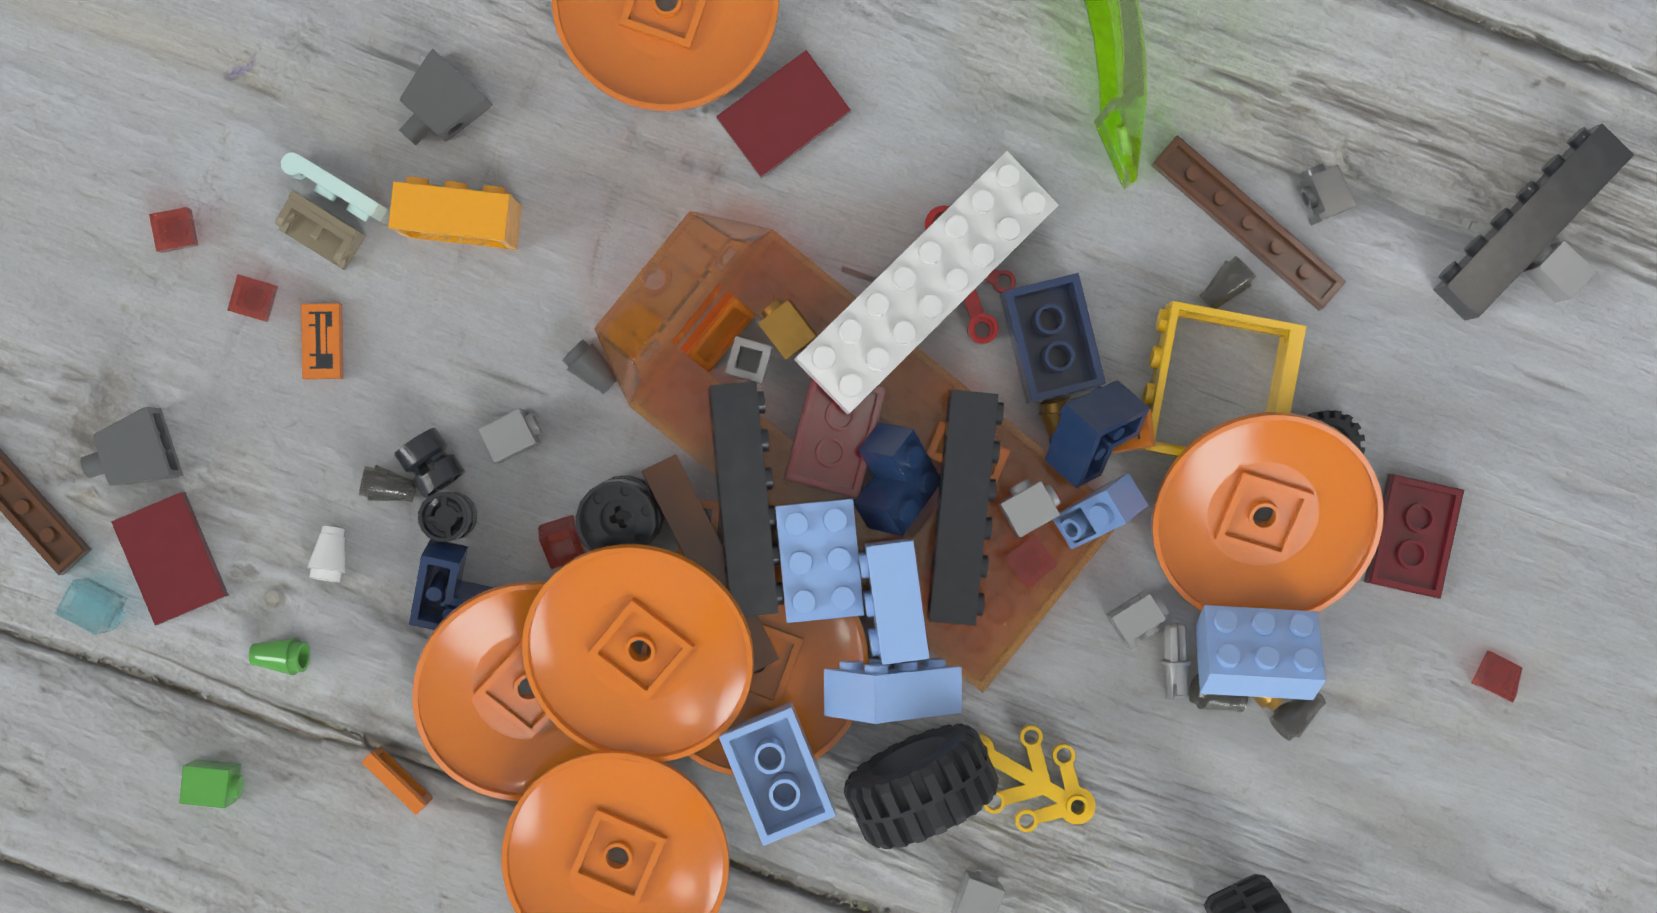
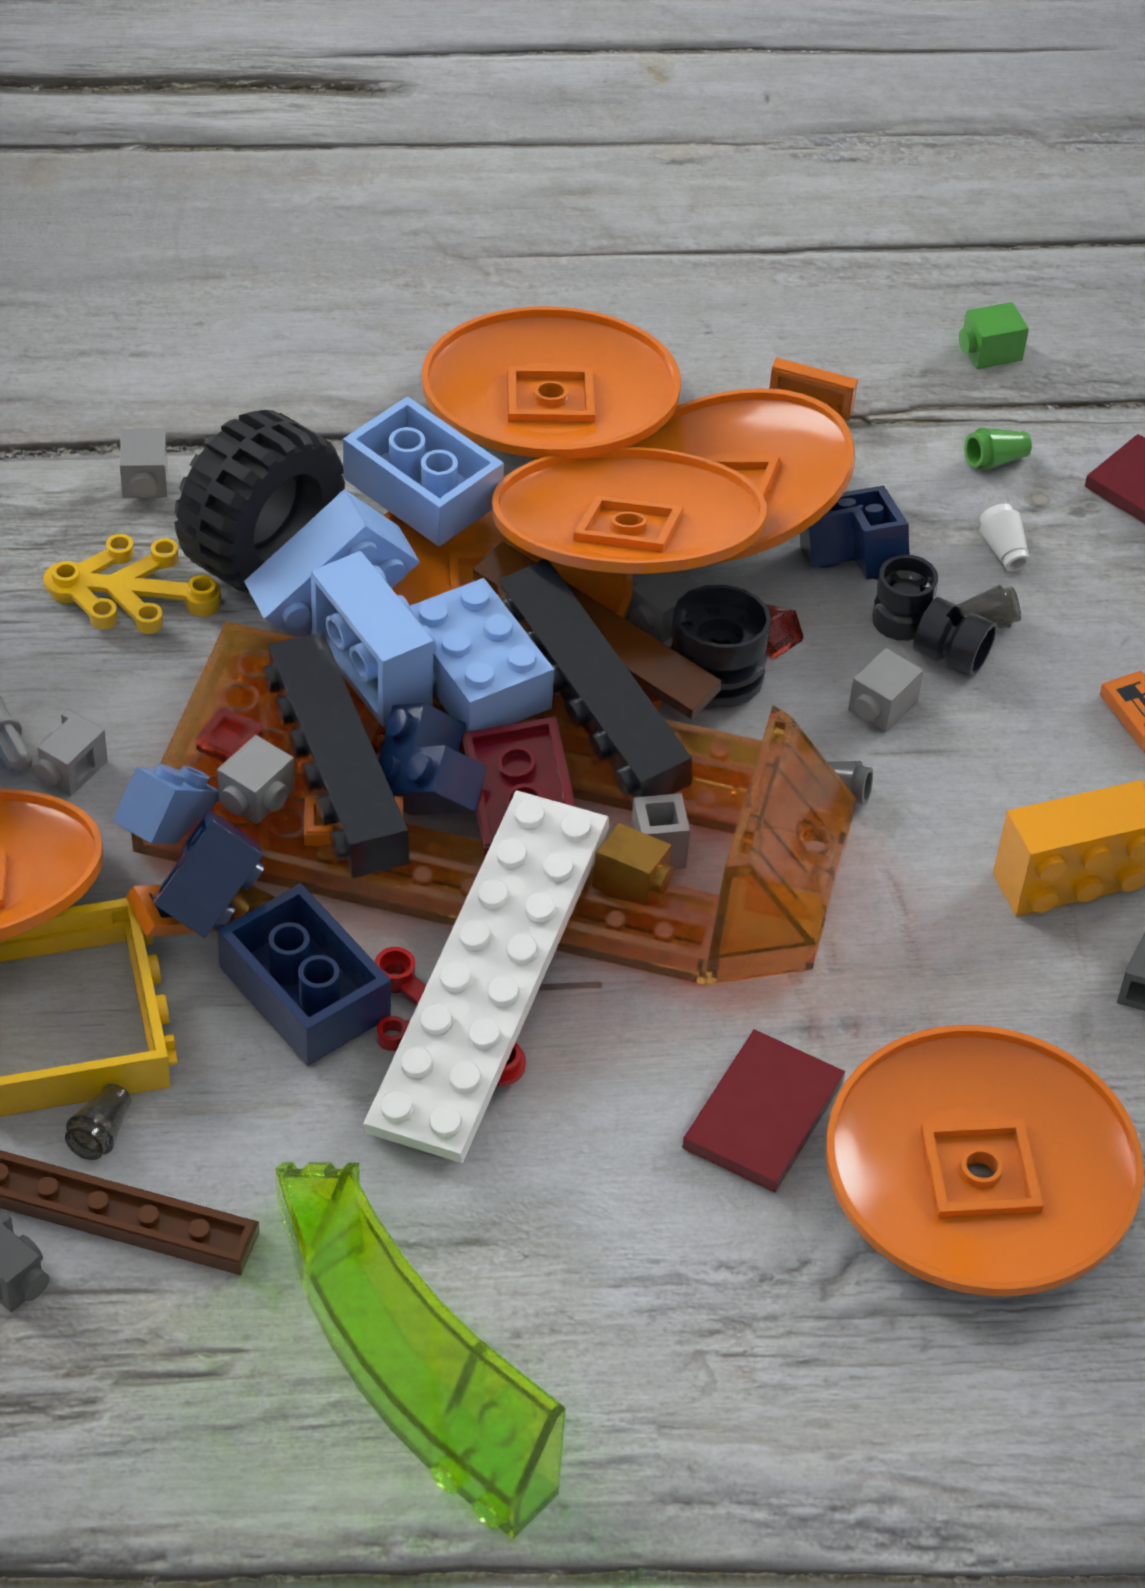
camera: 150 degrees right, 40 degrees down
(717, 331) = (710, 854): orange tile -> none

